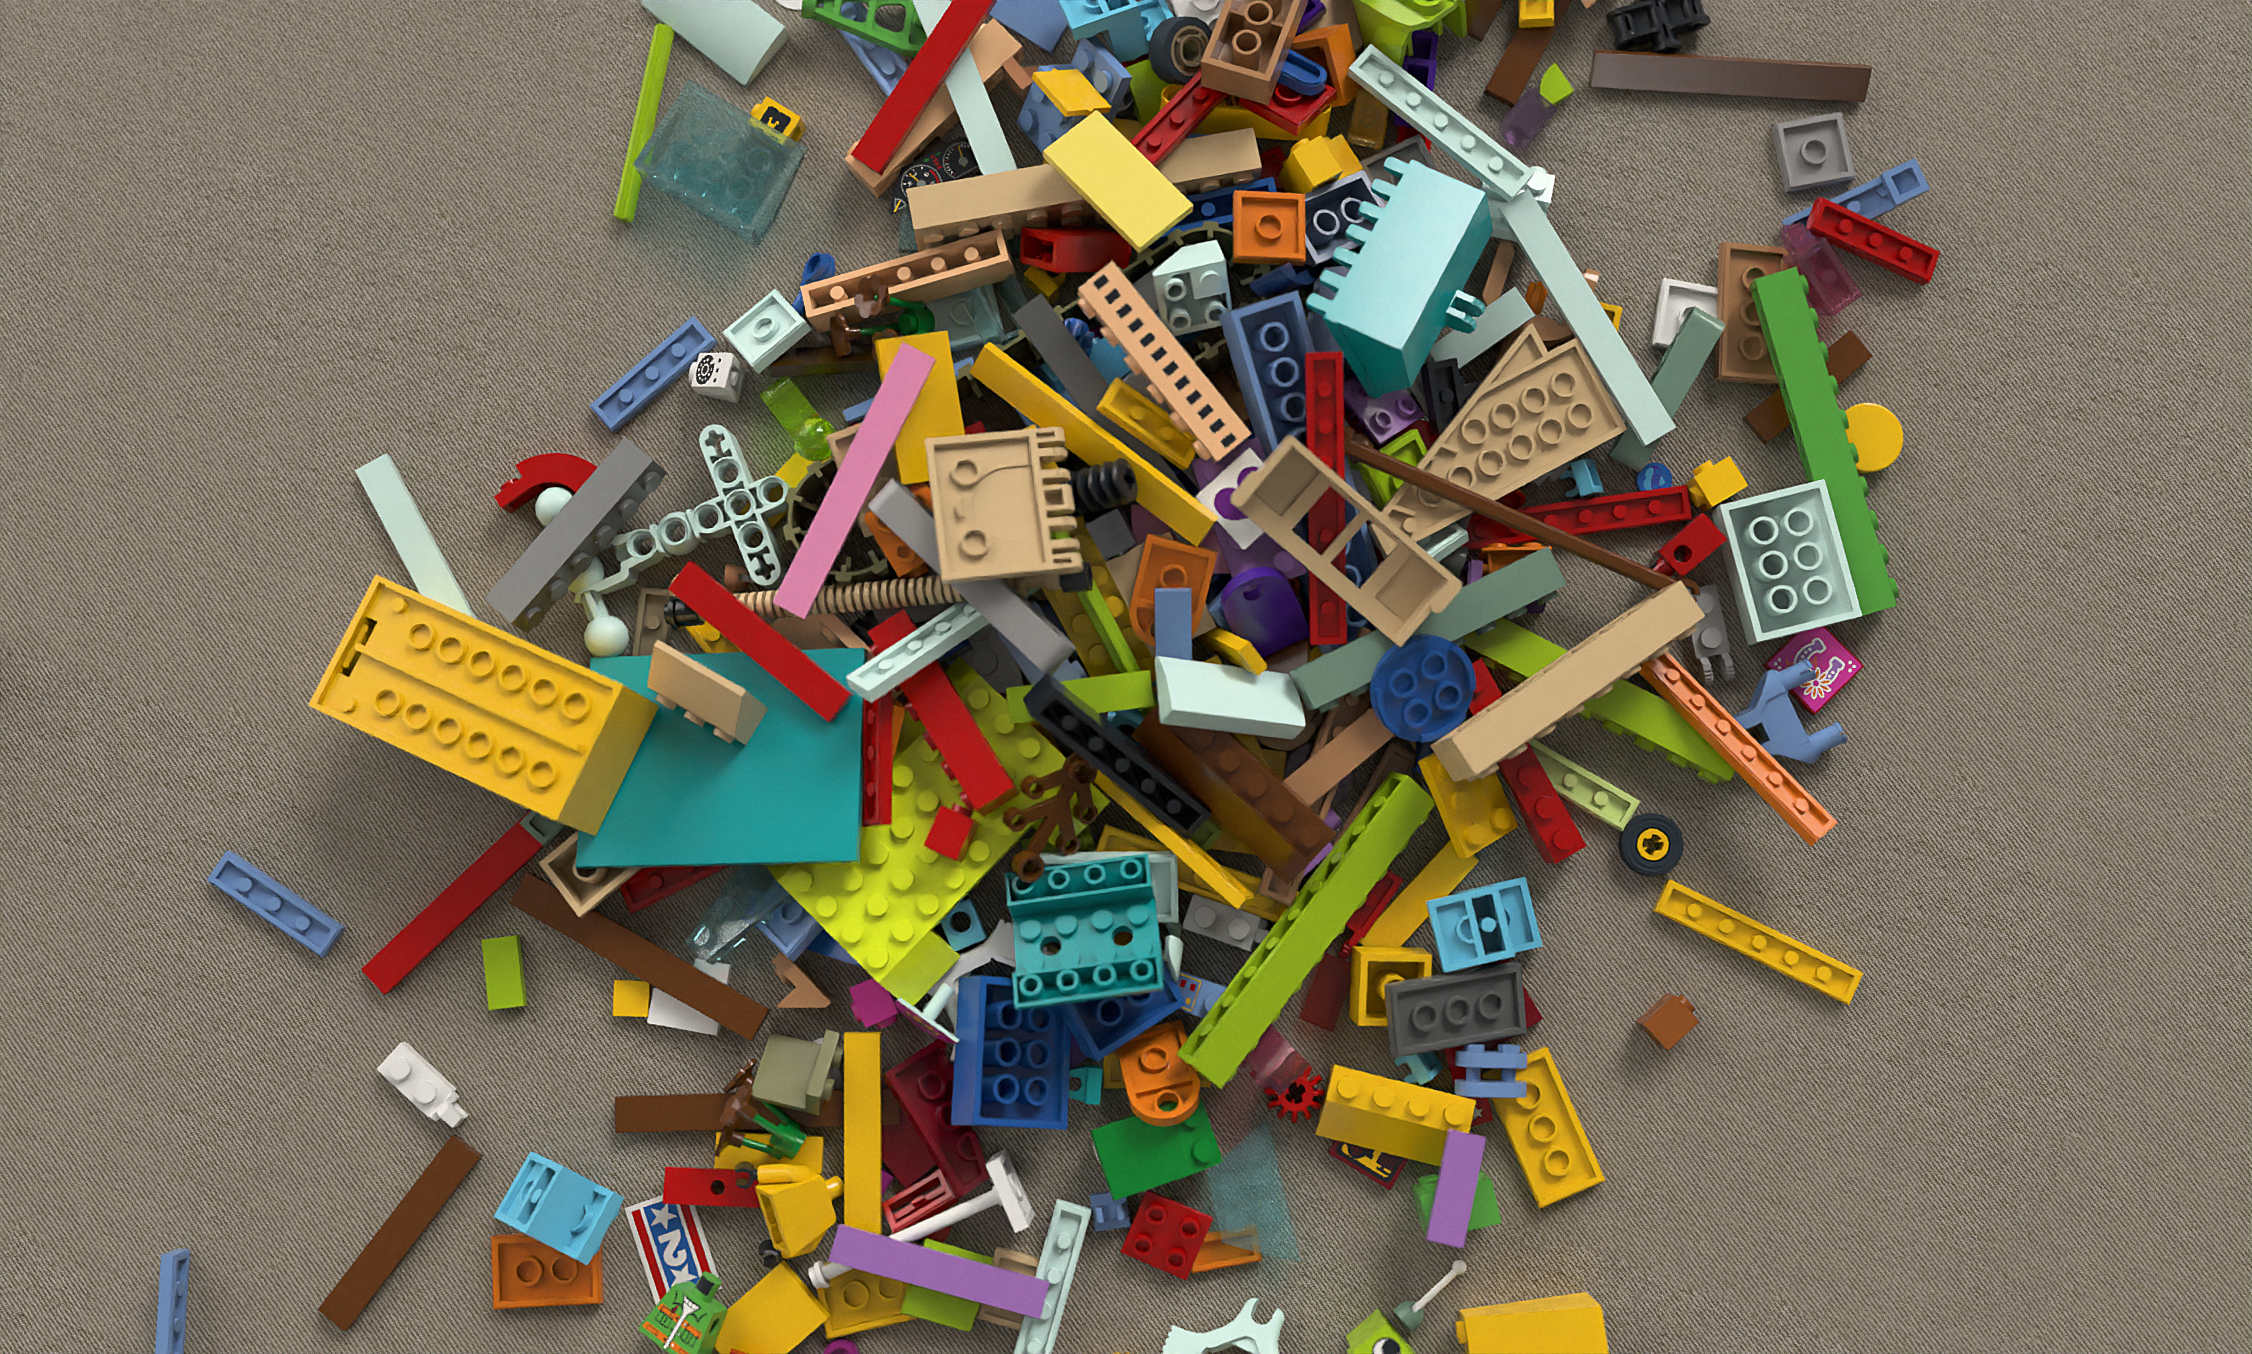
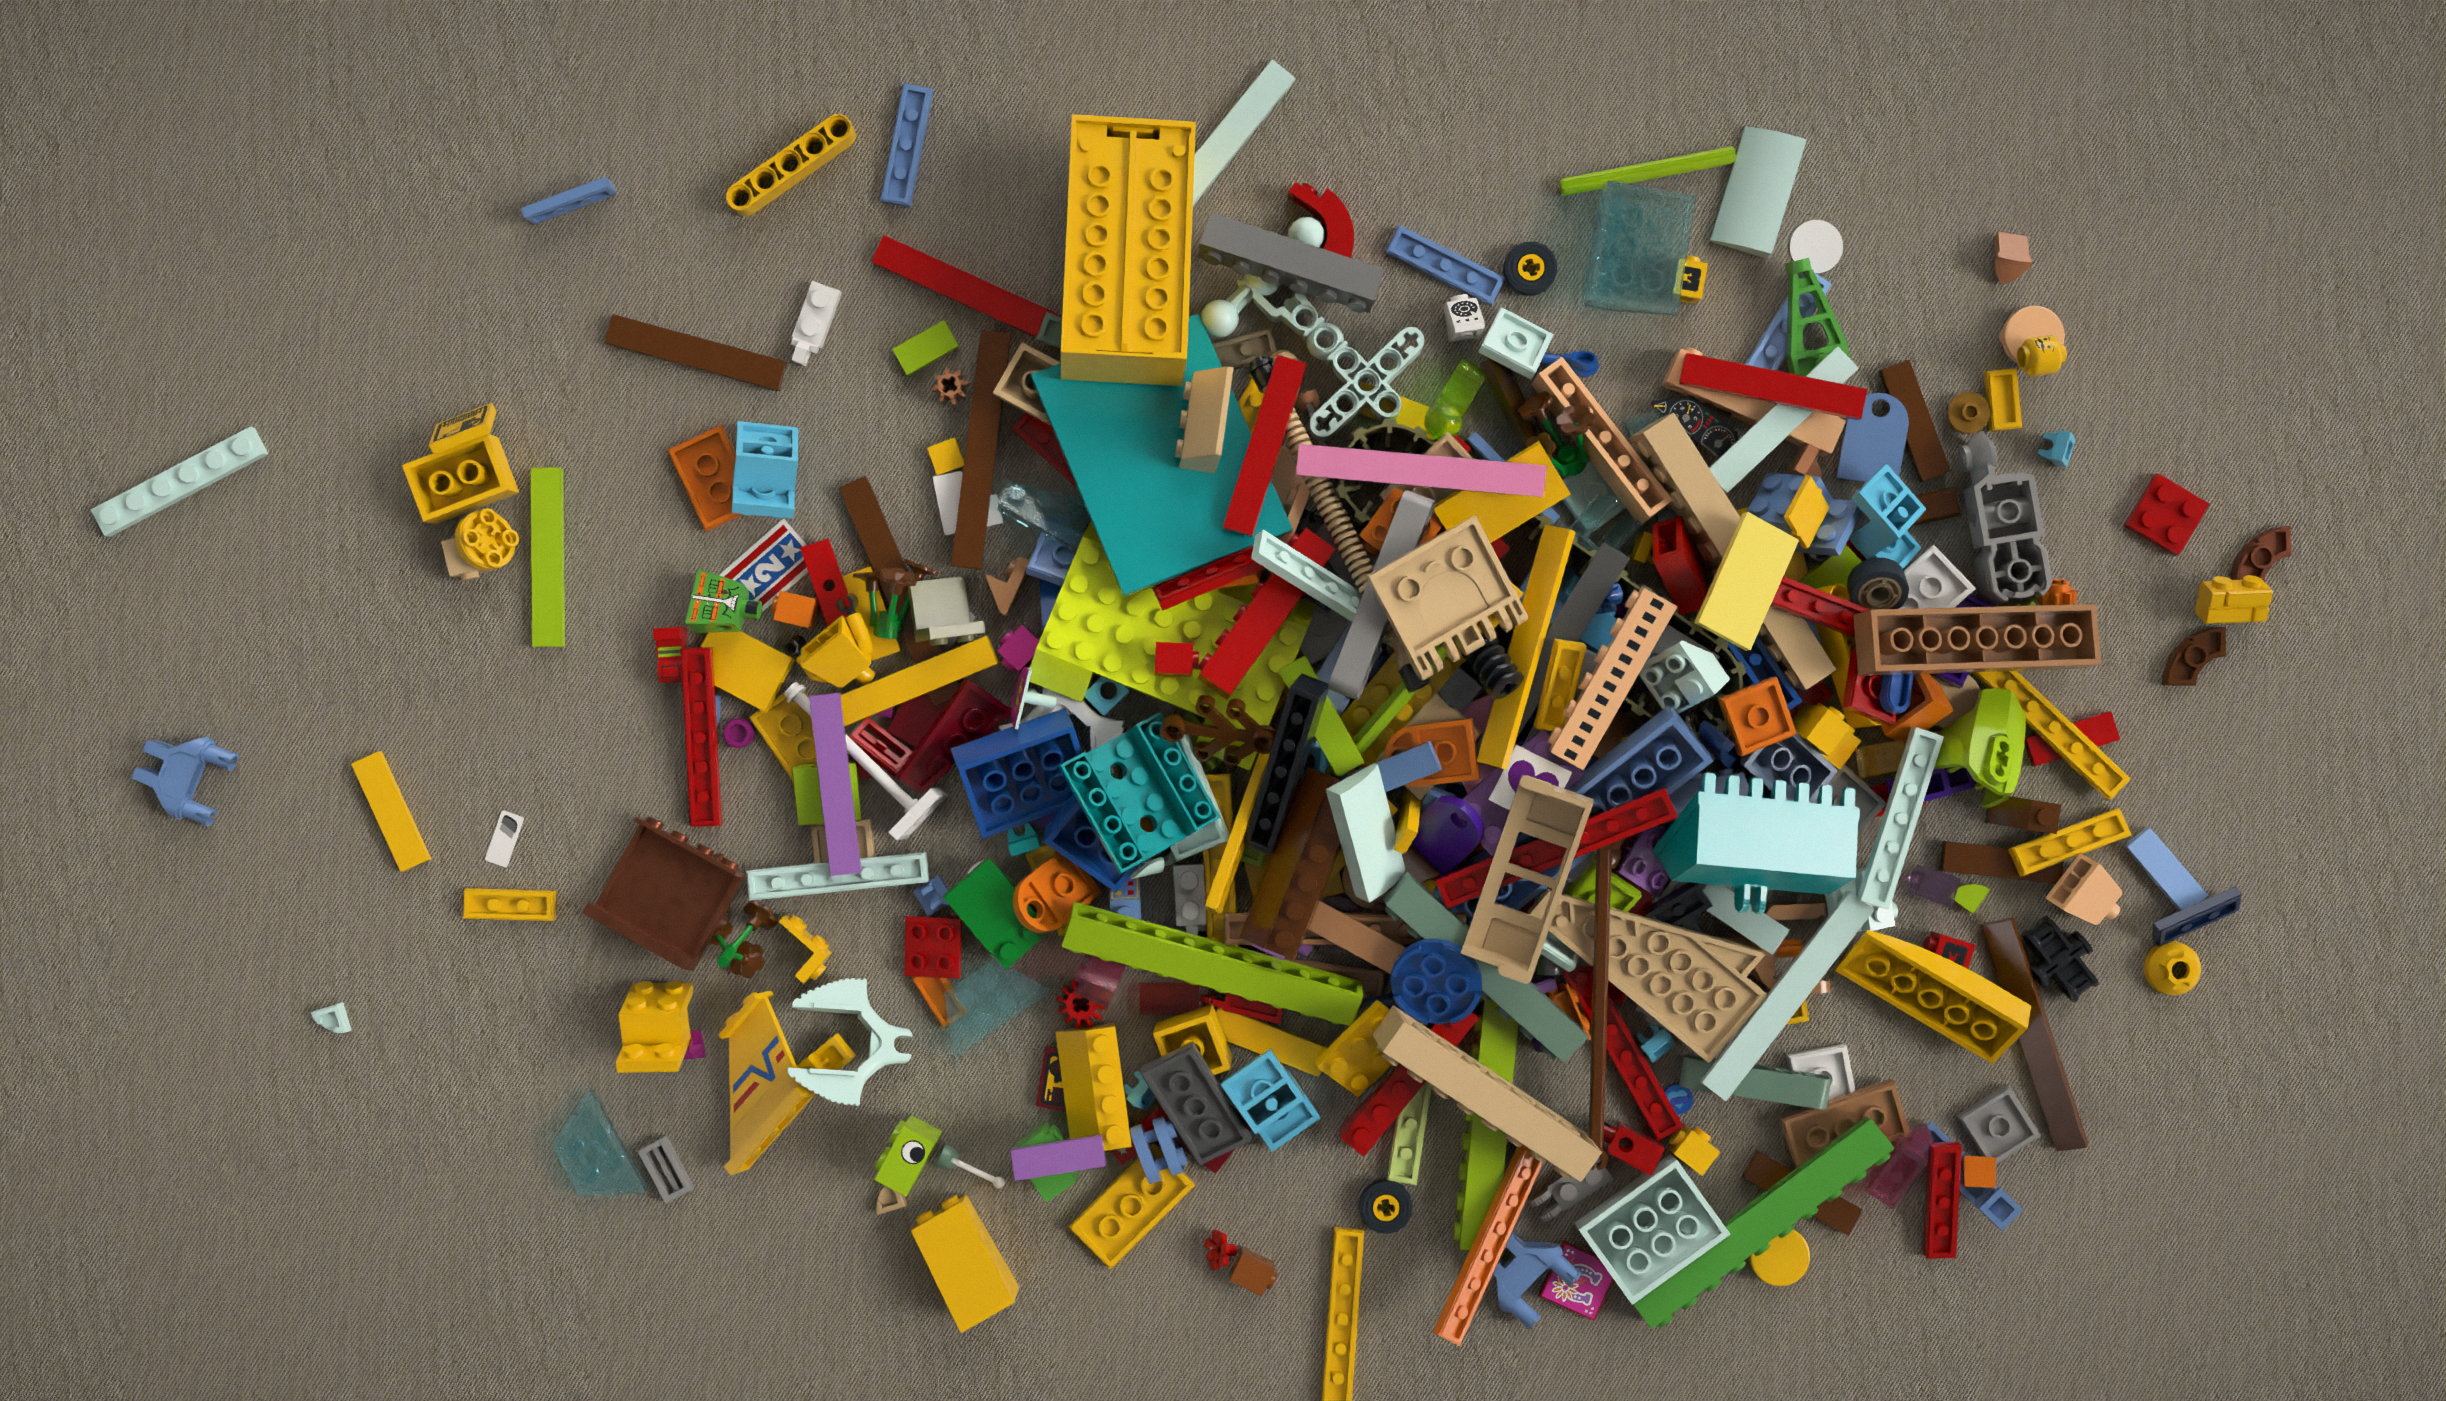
camera: 60 degrees right, 5 degrees up
(227, 1028) = (776, 165): none -> yellow beam
(565, 966) = (948, 377): none -> nougat gear
(684, 271) = (1539, 256): none -> black bush
(729, 1236) = (795, 609): none -> orange brick
(1604, 131) = (1950, 948): none -> red brick
(1630, 1049) = (1219, 1250): none -> red plant
(1645, 158) = (1938, 993): none -> yellow slope
(1855, 190) = (1979, 1171): none -> orange tile

